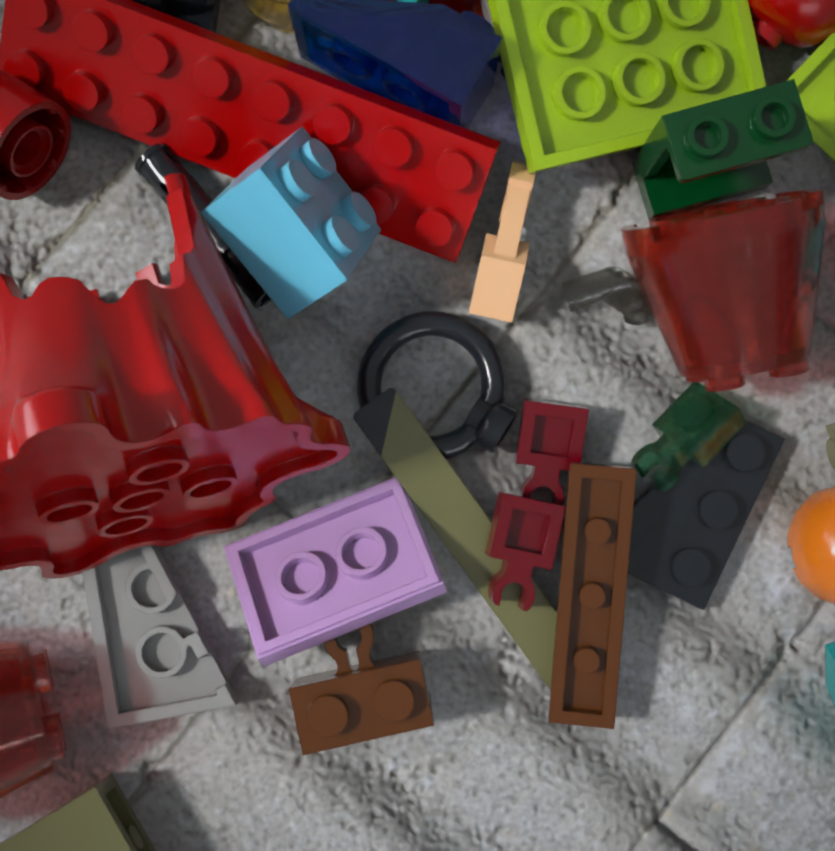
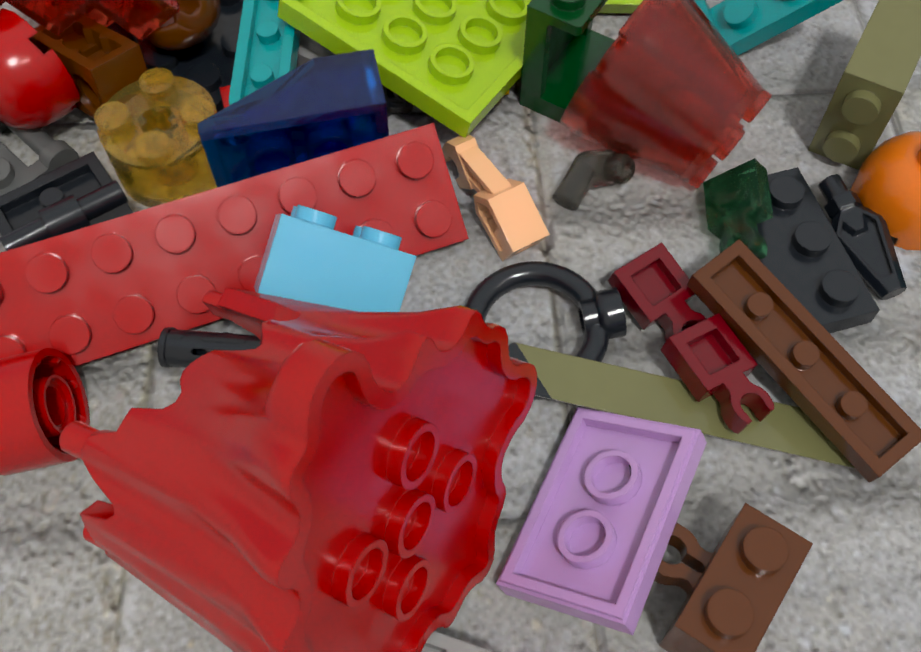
camera: 40 degrees left, 25 degrees down
(766, 541) = (864, 238): none -> black piece

